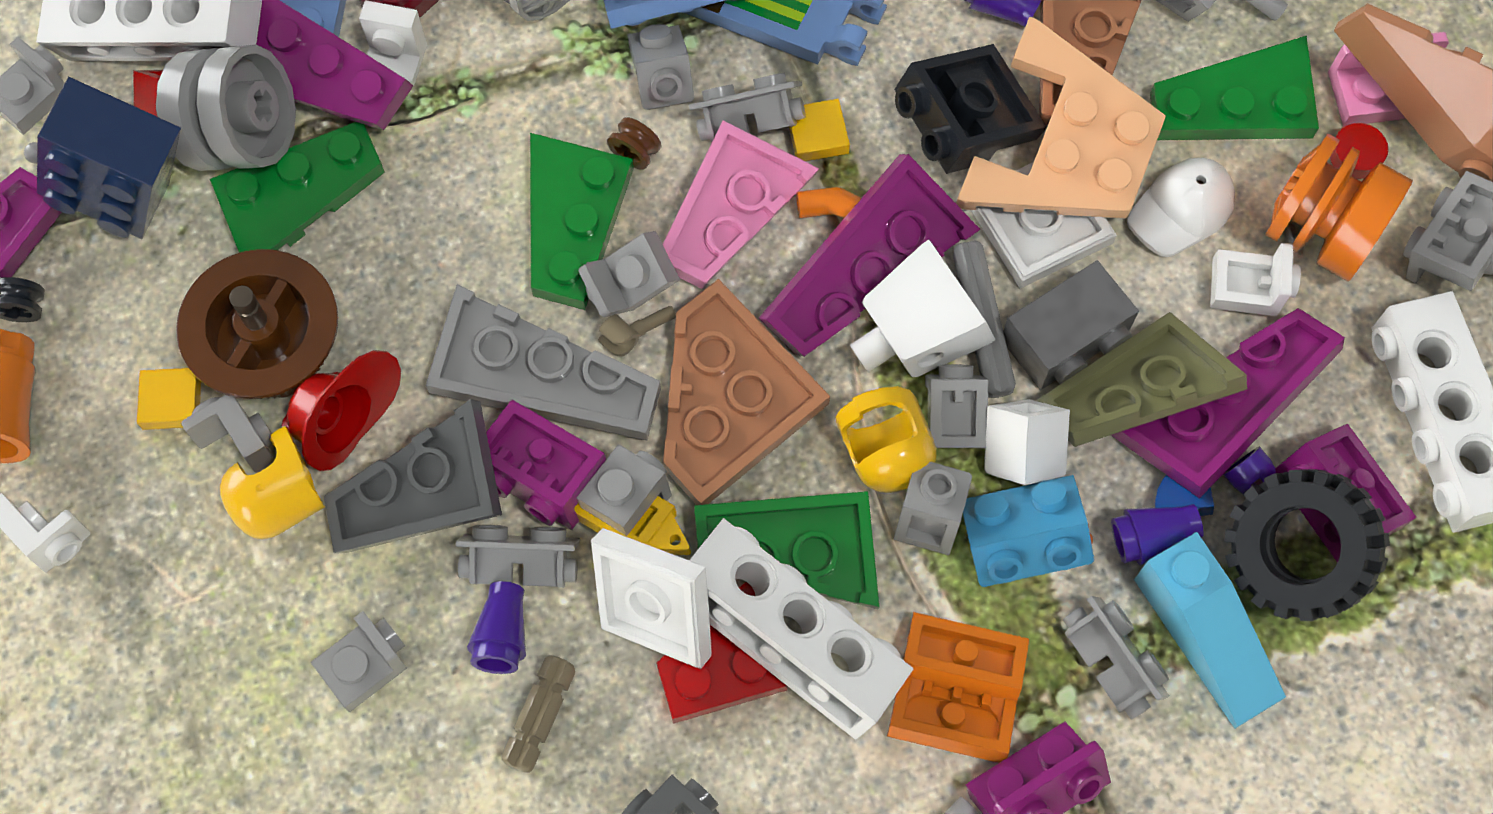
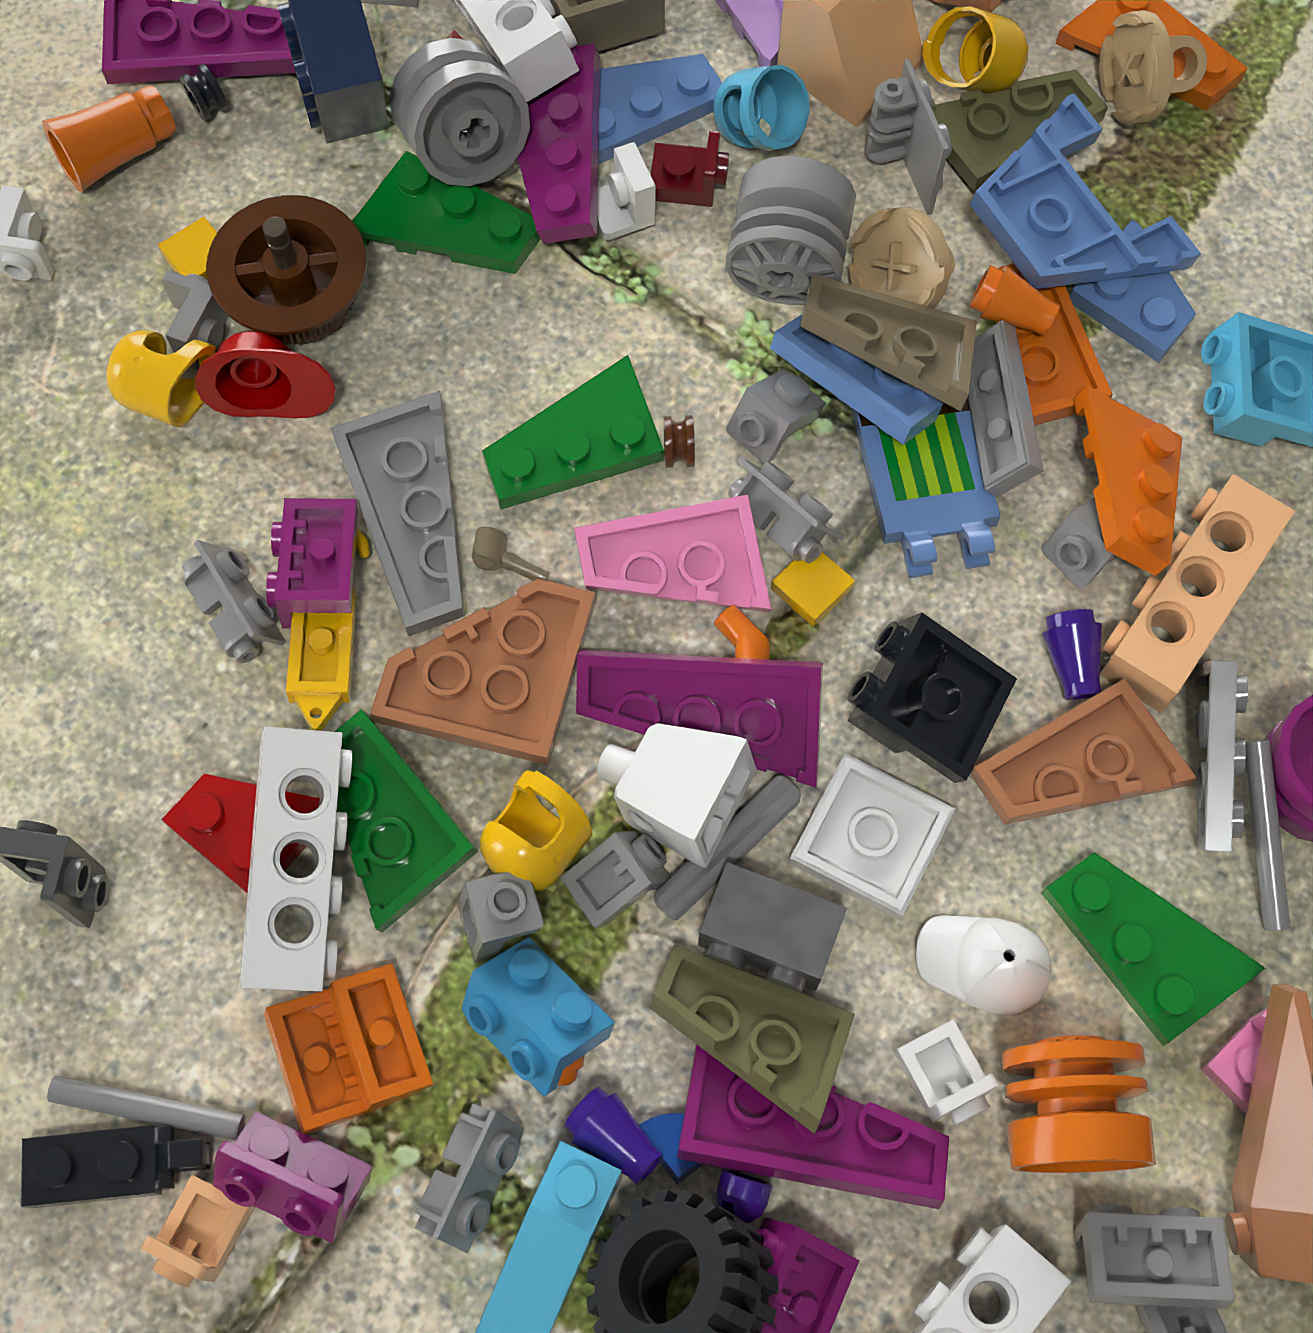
camera: 55 degrees right, 0 degrees up
(361, 661) = (62, 543): light grey bracket -> none
(423, 488) = (230, 483): dark grey wing -> none
(500, 631) = (154, 629): dark purple cone -> none
(538, 714) = (102, 709): dark tan axle -> none
(624, 488) = (337, 642): light grey bracket -> none
(629, 275) = (539, 516): light grey bracket -> none
(652, 597) = (239, 725): white tile -> none
(1026, 441) = (622, 960): white panel -> none
(1092, 145) = (968, 832): light nougat wing -> none
(1367, 140) = (1179, 1098): red tile -> none

